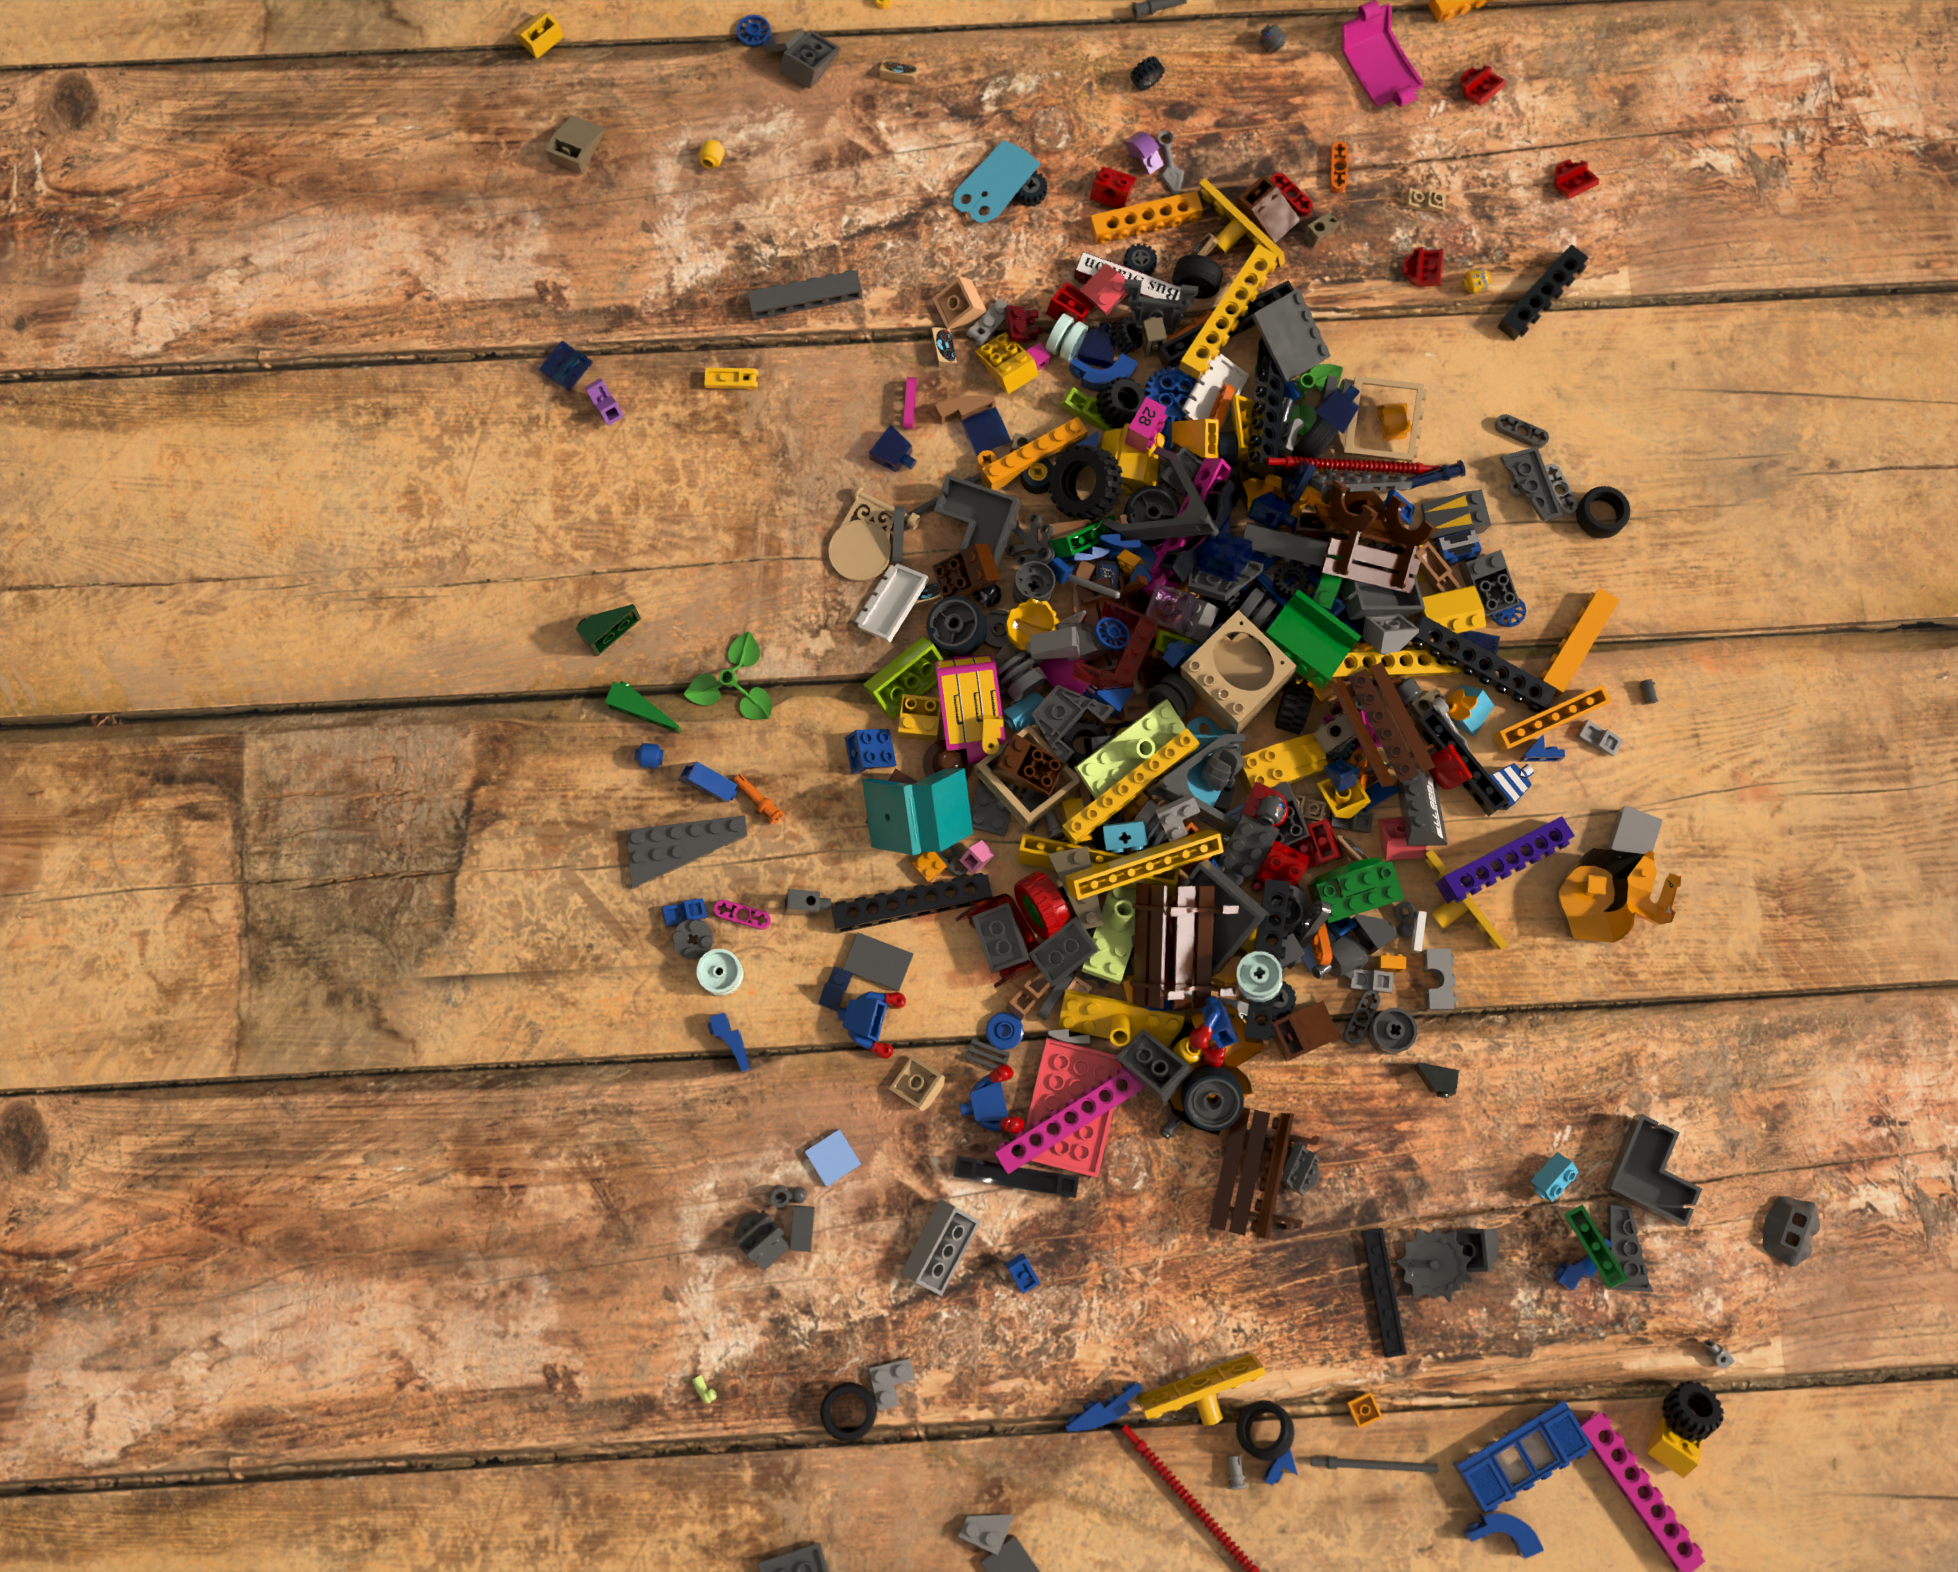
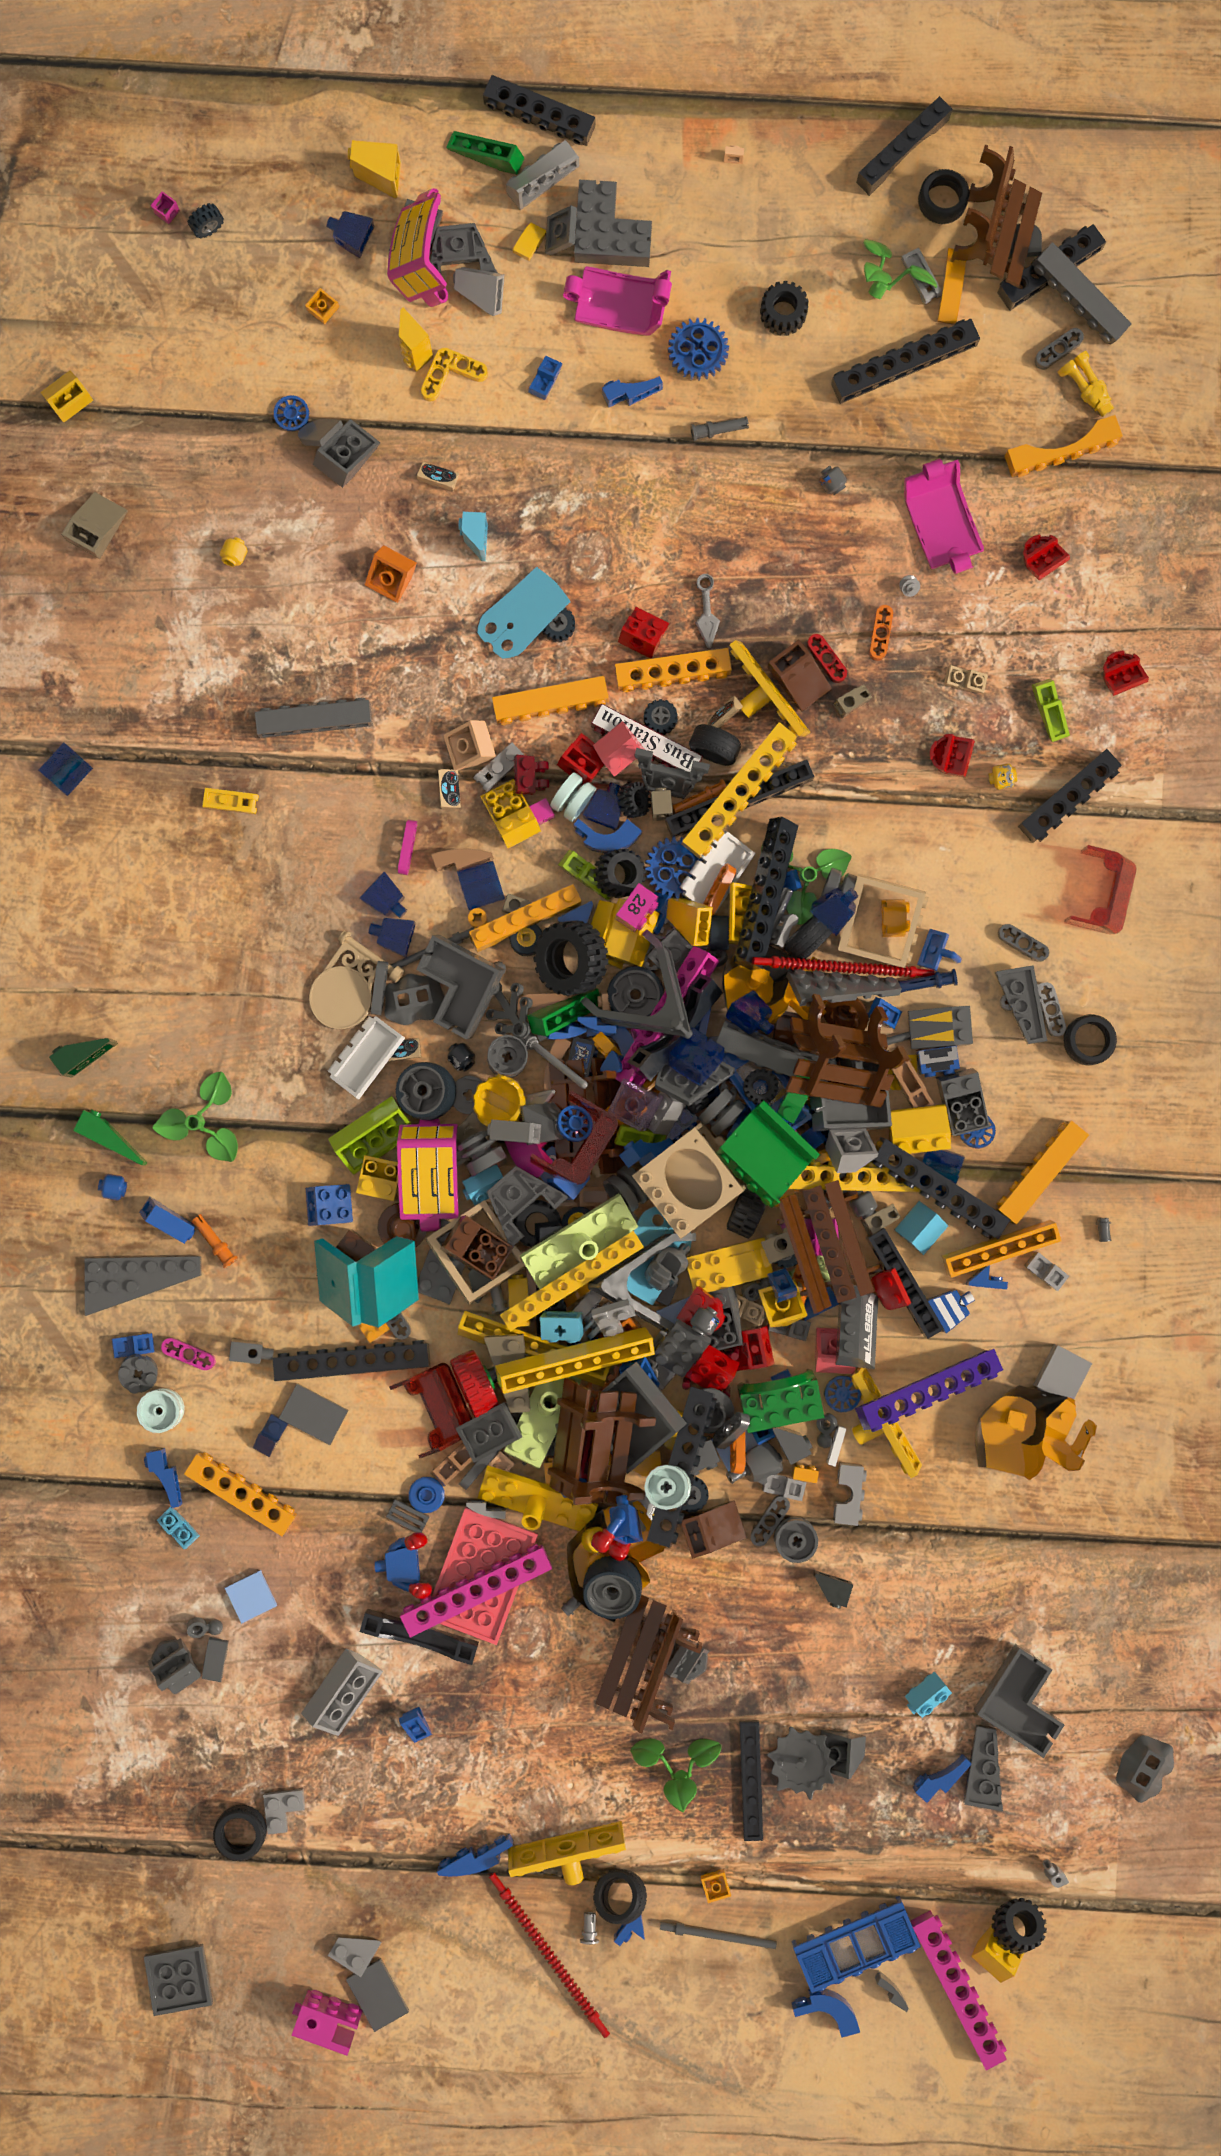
camera: 10 degrees right, 10 degrees up
(604, 402) = (100, 815): medium lavender brick -> none
(705, 1394) = (111, 1802): yellowish green arm -> none
(749, 1094) = (178, 1527): none -> medium azure slope
(763, 1032) = (196, 1472): none -> light orange brick
(863, 159) = (390, 573): none -> orange slope
(865, 1019) = (294, 1470): blue torso -> none
(906, 485) = (394, 934): none -> clear blue torso
(918, 1084) = (337, 1537): tan slope -> none
(926, 558) = (415, 1010): none -> dark grey piece
(940, 112) = (474, 529): none -> medium azure slope
(966, 571) = (440, 1038): reddish brown slope -> none
(977, 857) = (419, 1324): bright pink brick -> none
(989, 733) = (442, 1216): yellow leg -> none
(1000, 938) = (431, 1409): dark grey plate -> none
(1031, 255) = (550, 699): none -> light orange brick
(1060, 569) = (533, 1045): blue tile -> none
(1145, 148) = (681, 595): medium lavender brick -> none
(1147, 73) = (695, 509): black wheel -> none
(1154, 1066) = (559, 1552): dark grey slope -> none
(1291, 335) = (799, 822): dark grey slope -> none
(1294, 485) = (782, 982): dark blue plate -> none
(1311, 790) = (750, 1289): none -> dark grey plate
(1312, 1300) = (681, 1789): none -> bright green plant
(1350, 849) = (786, 1359): tan slope -> none
(1359, 122) = (909, 585): none -> light grey wheel
(1416, 881) = (842, 1394): none -> blue wheel
(1437, 445) = (934, 950): none -> blue plate
(1442, 709) = (893, 1232): light grey piece -> none
(1460, 705) = (912, 1226): light orange plate -> none
(1511, 218) = (1051, 709): none -> lime slope
(1572, 1504) = (894, 1995): none -> dark grey slope
(1595, 1246) = (953, 1767): green slope -> none
(1599, 397) = (1110, 919): none -> clear red windscreen

